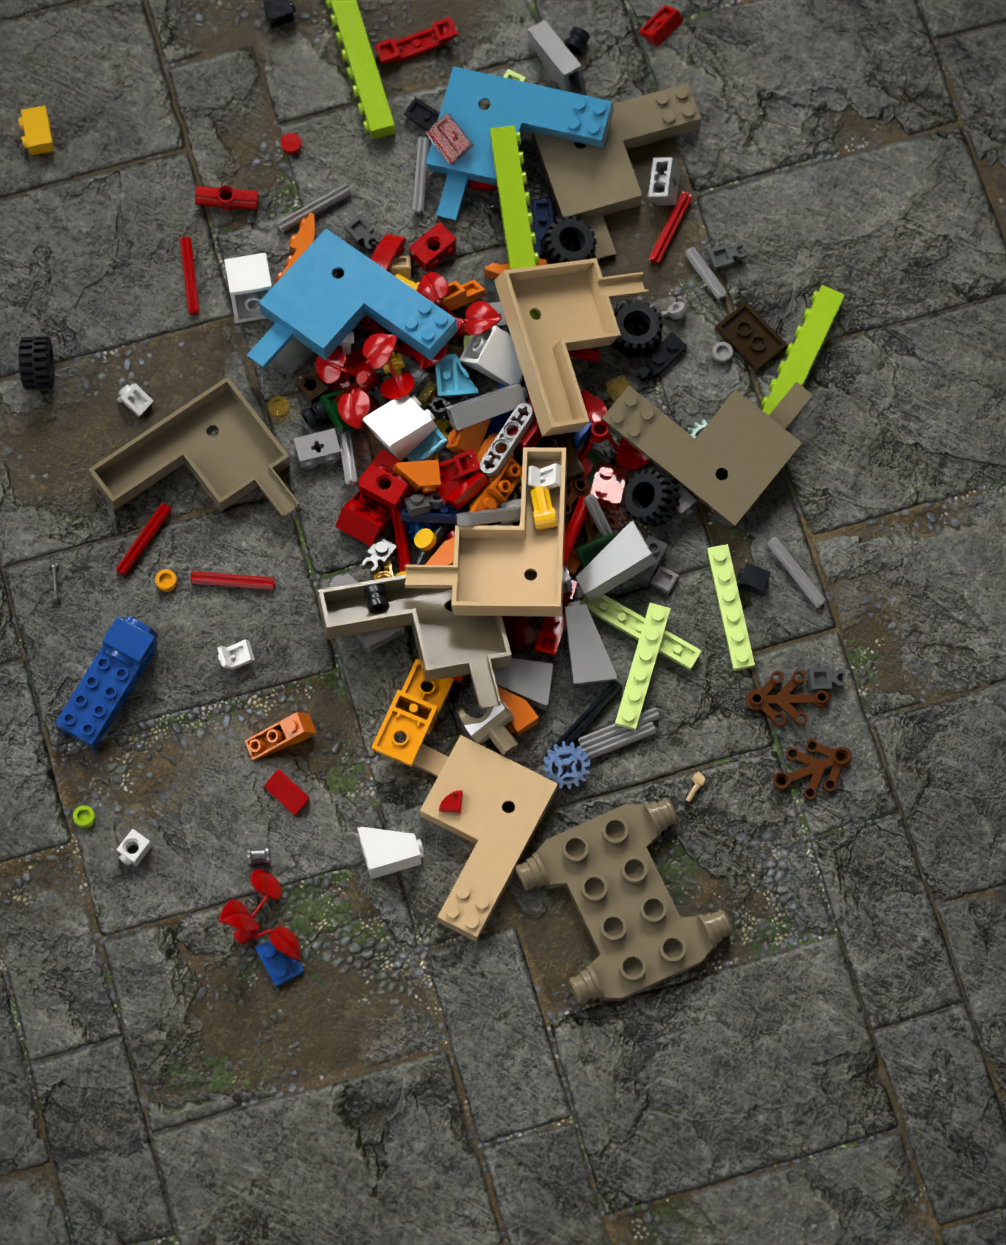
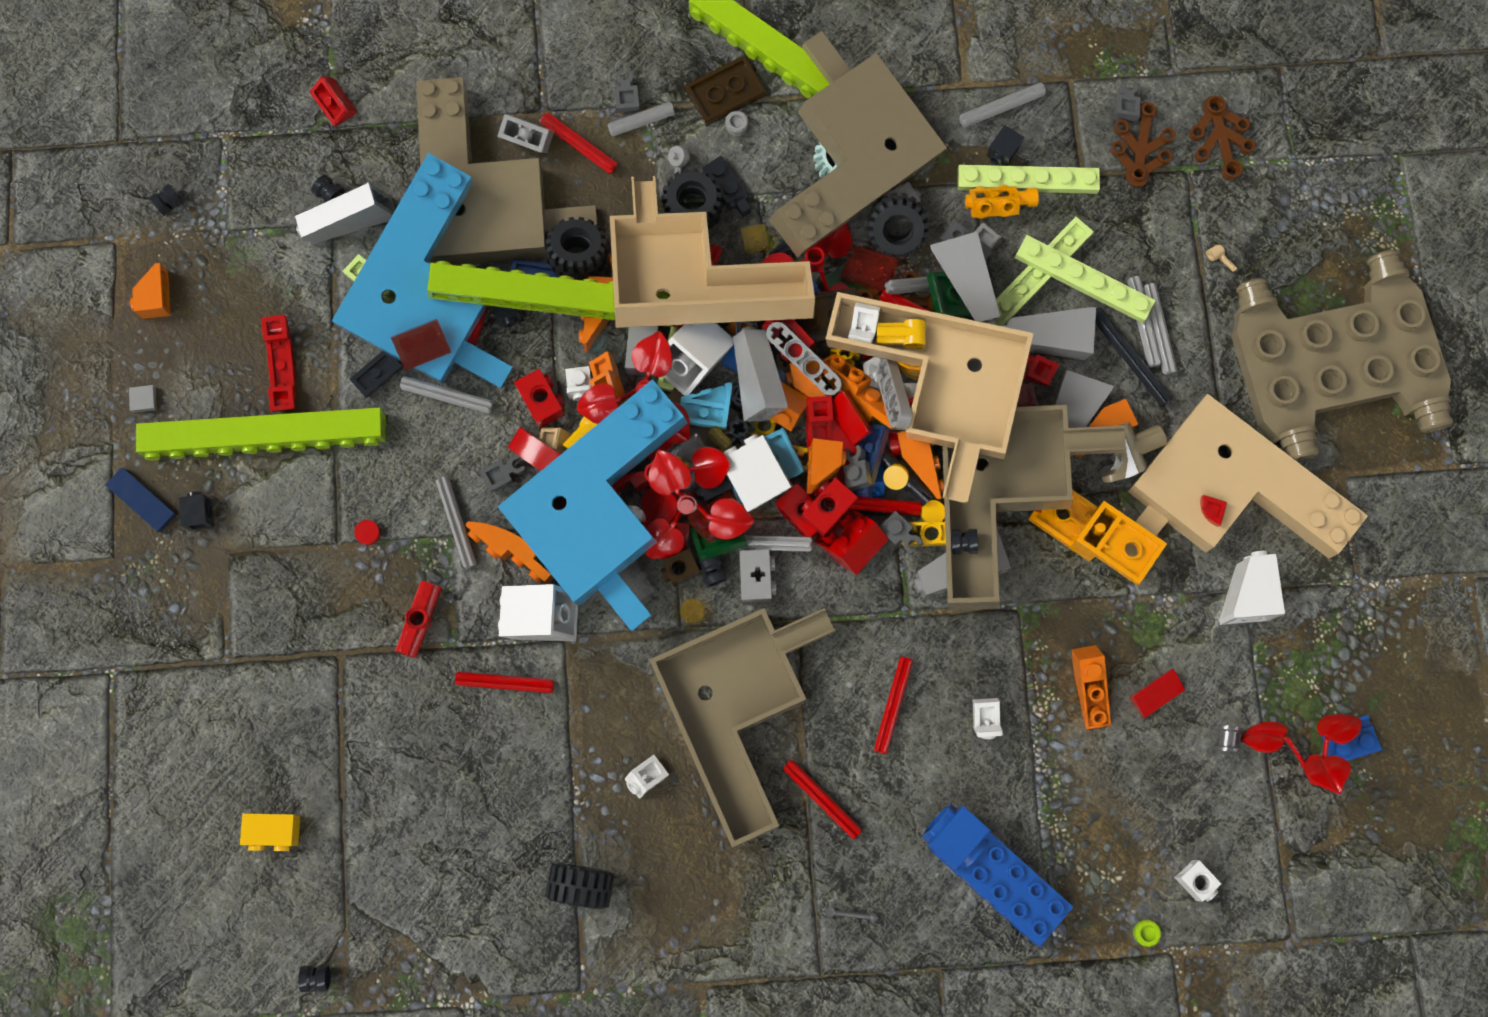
camera: 75 degrees left, 5 degrees up
(166, 580) = (877, 782): light orange tile -> none
(456, 272) = (577, 382): none -> white bracket
(566, 775) = (1182, 381): medium blue gear -> none
(700, 582) = (994, 204): none -> light orange brick

